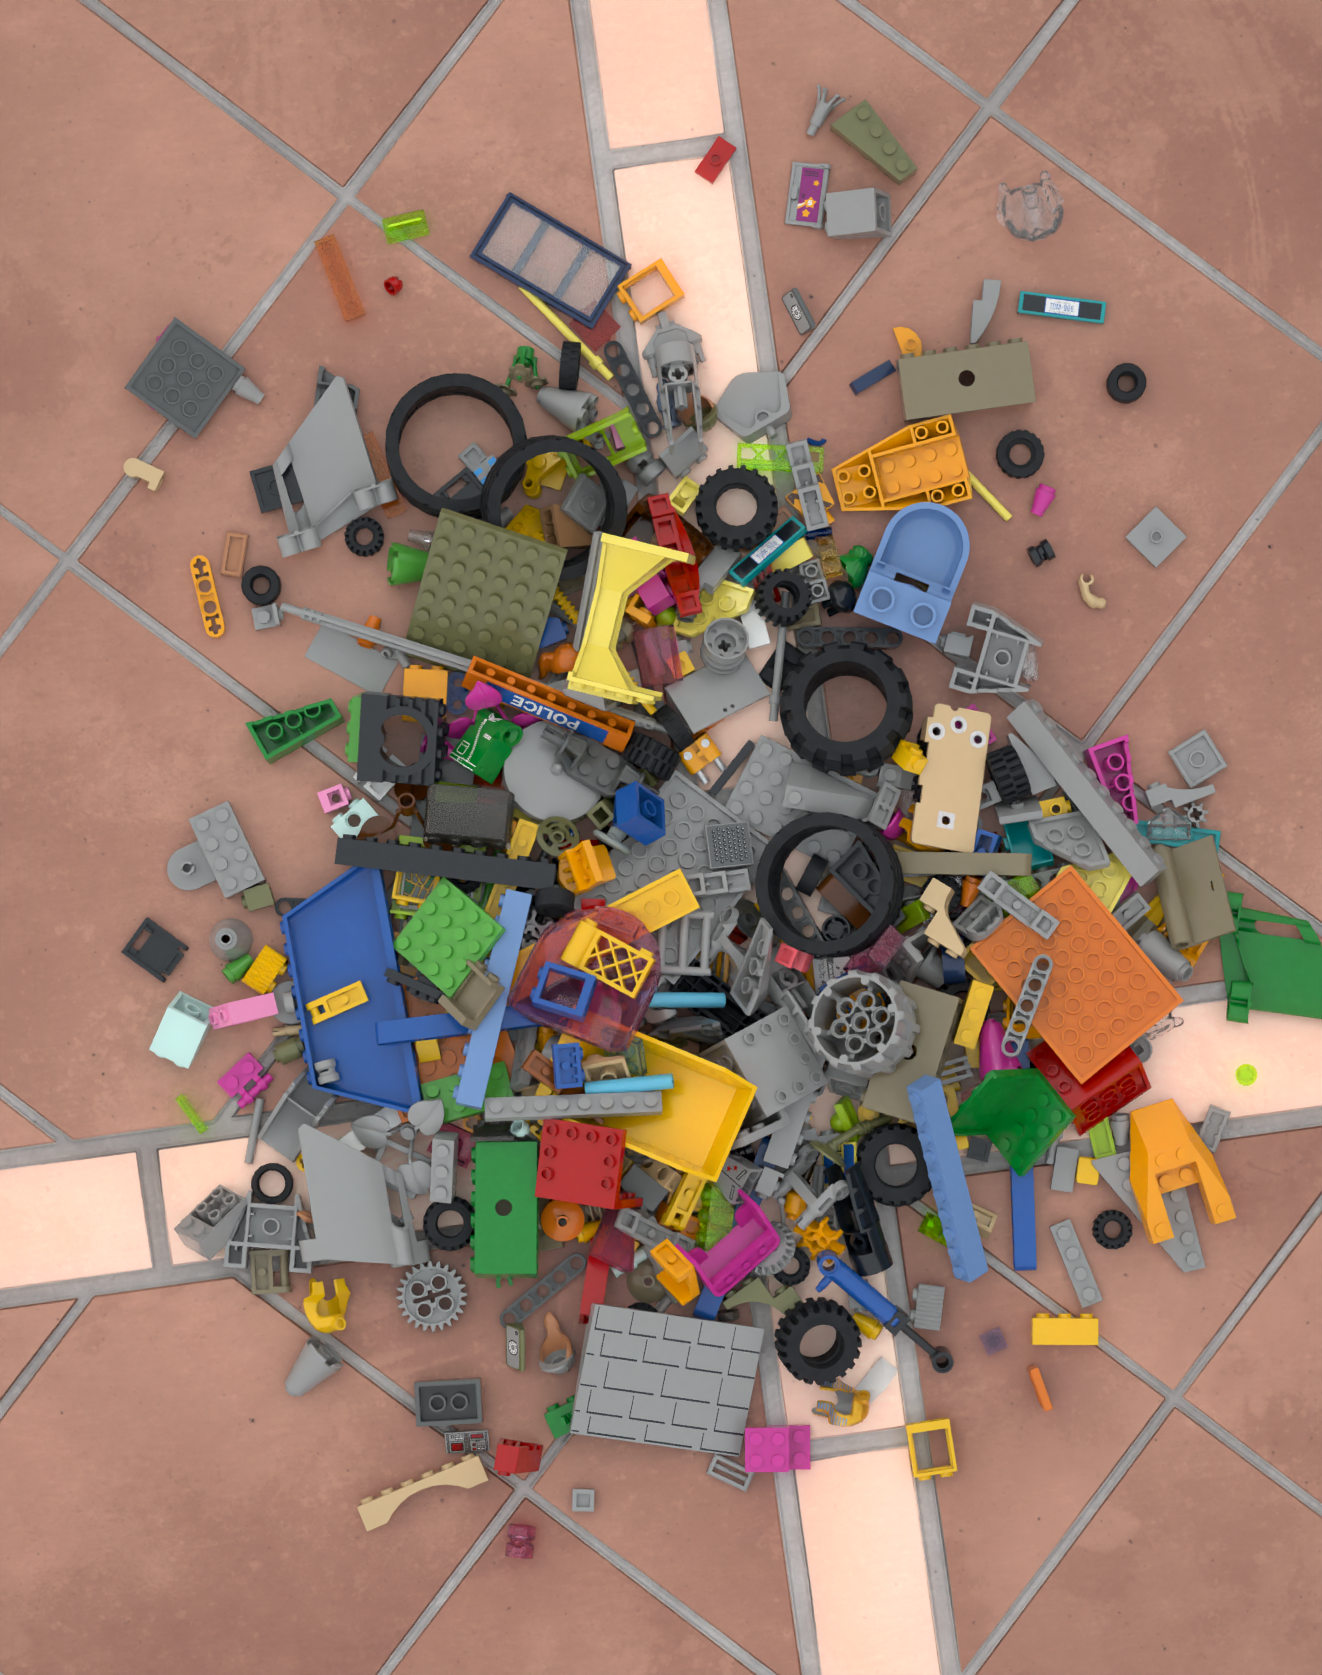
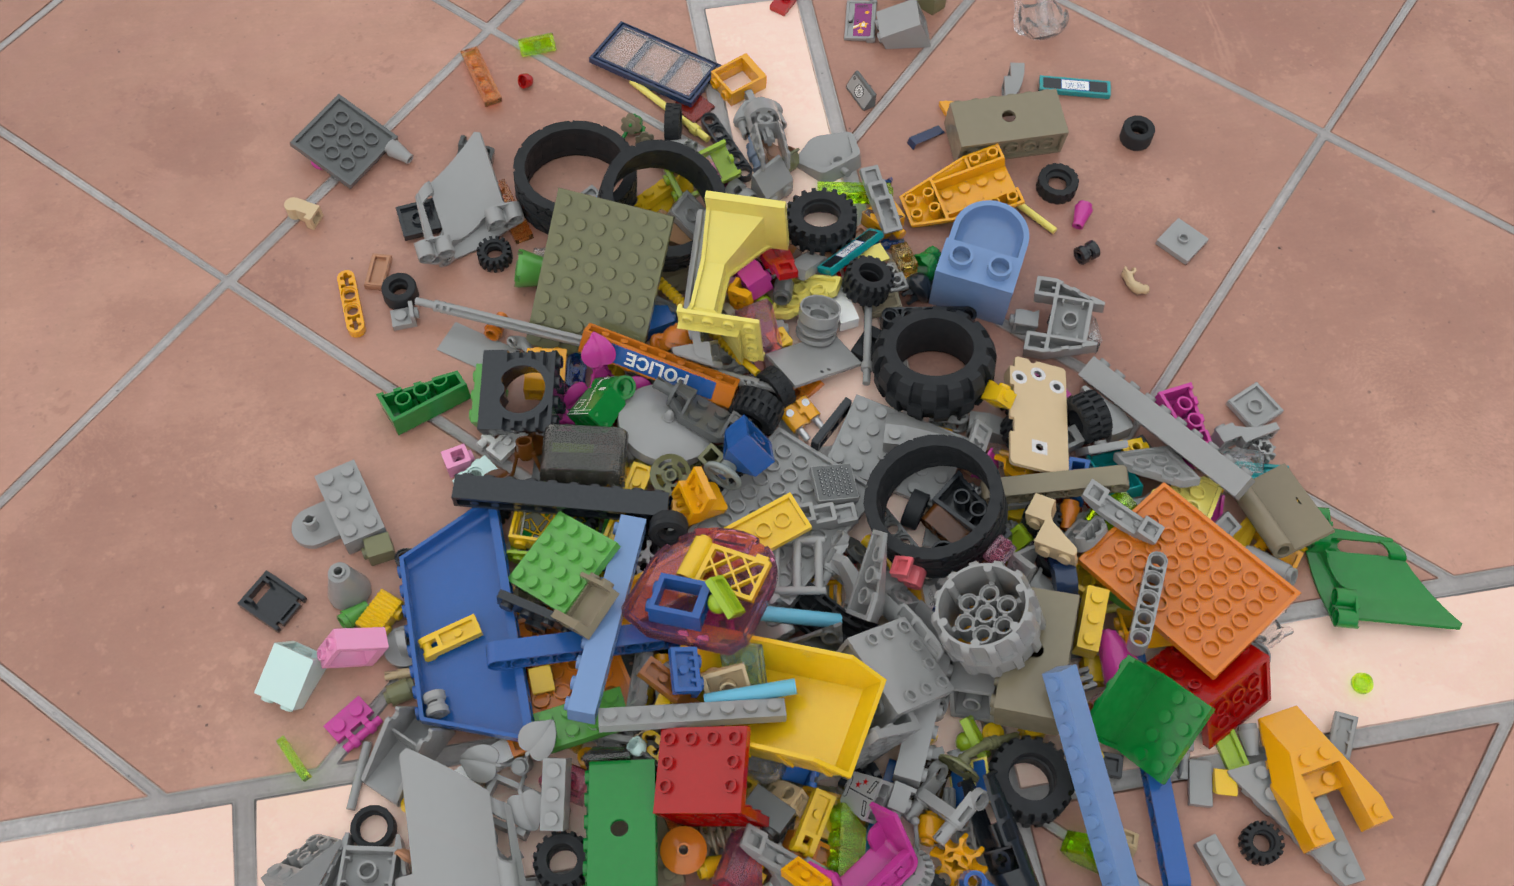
camera: 10 degrees left, 25 degrees down
(606, 994) = (723, 598): none -> lime tile

